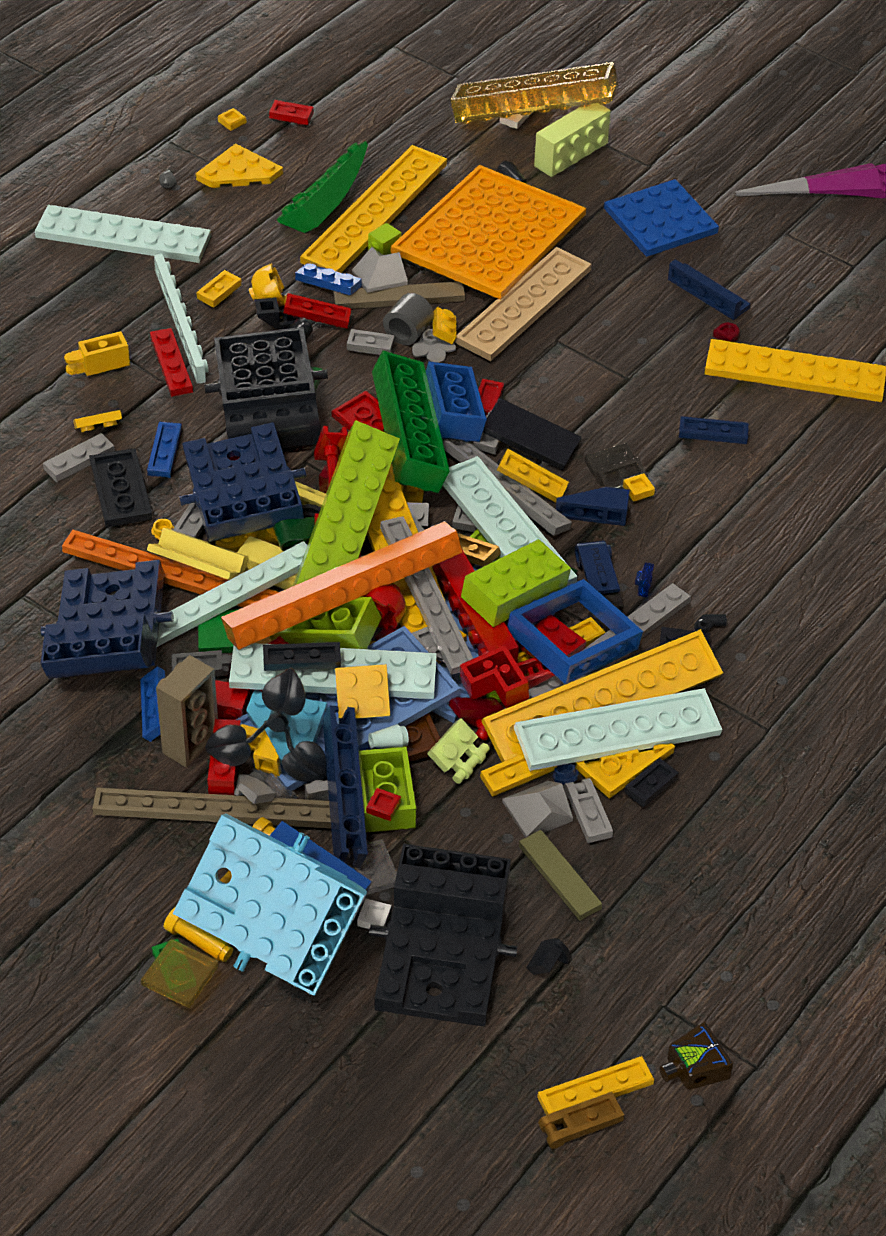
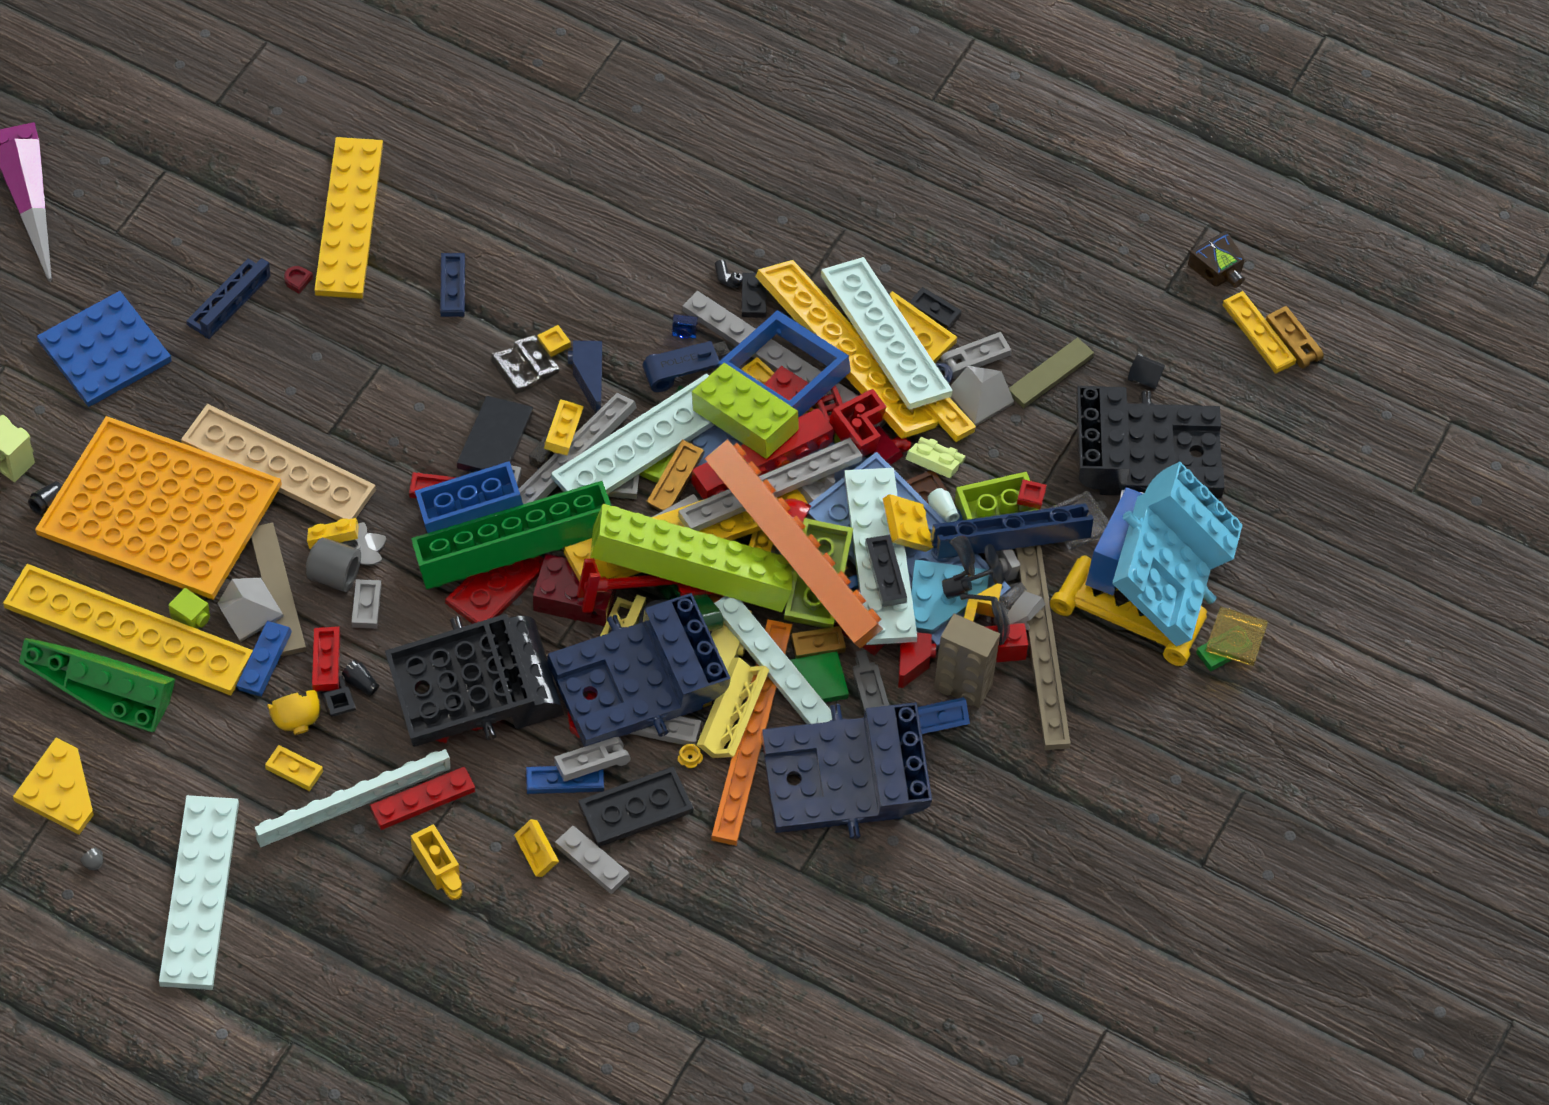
camera: 100 degrees left, 10 degrees up
(172, 457) = (591, 758): none -> light grey plate

